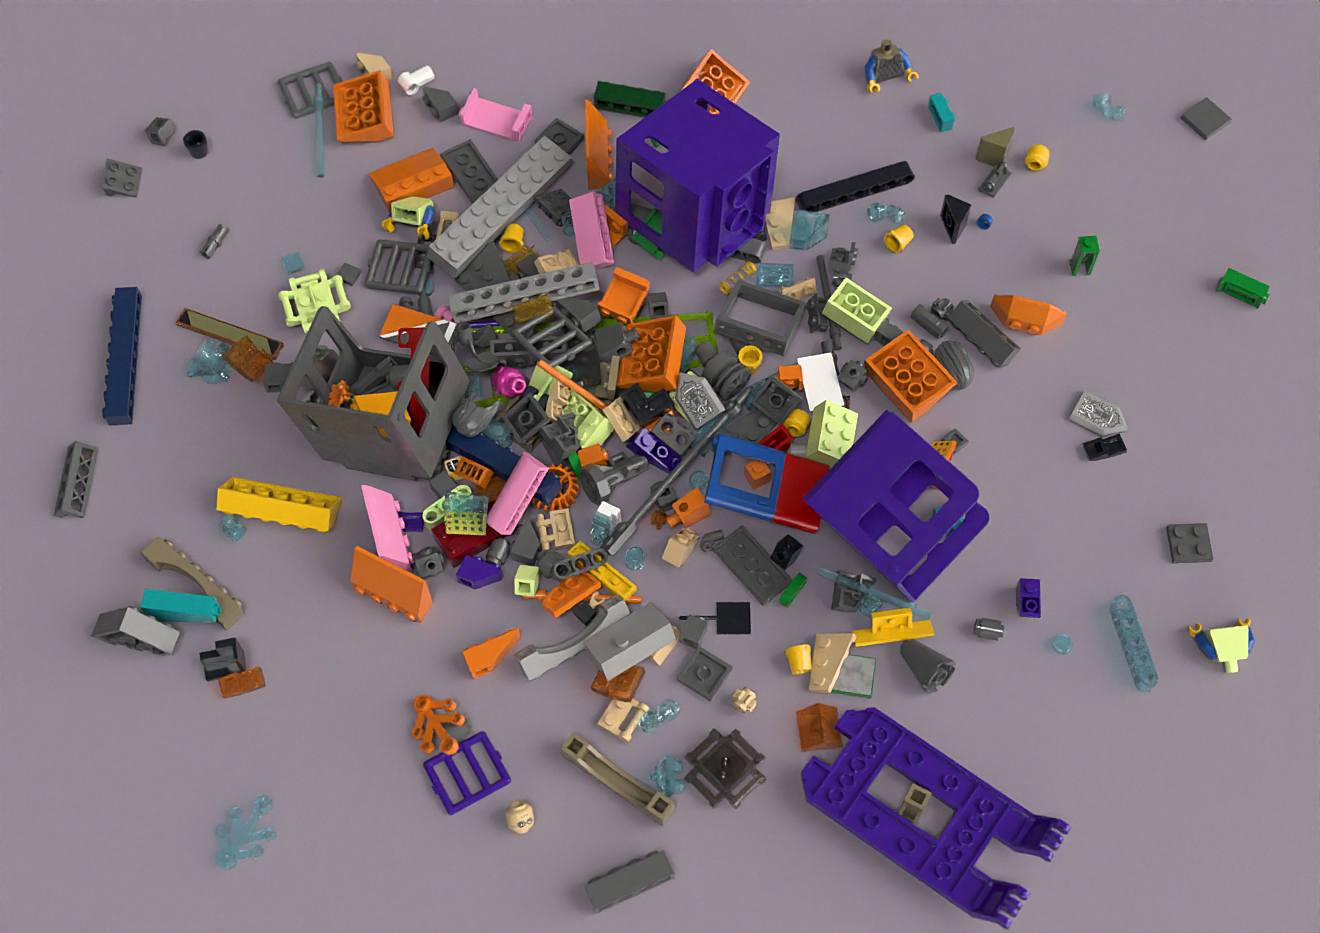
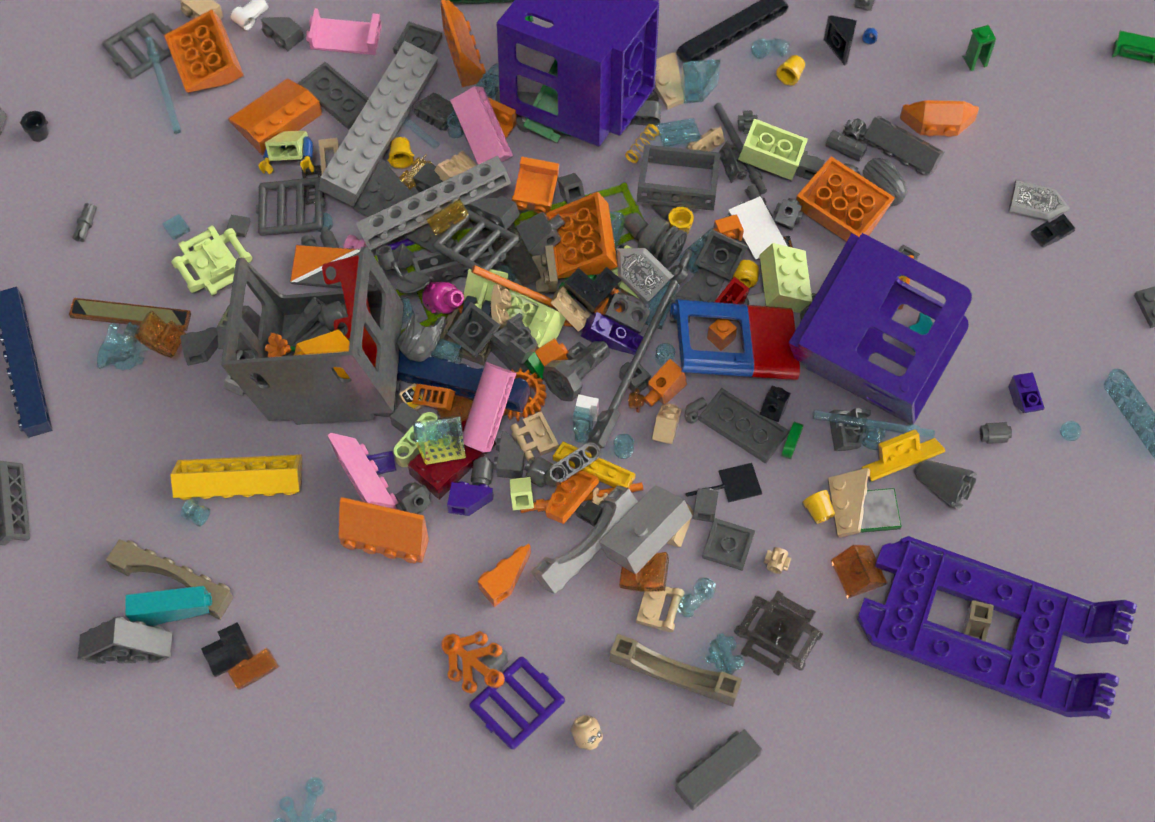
camera: 15 degrees left, 0 degrees up
(843, 259) = (743, 101): dark grey bracket -> none

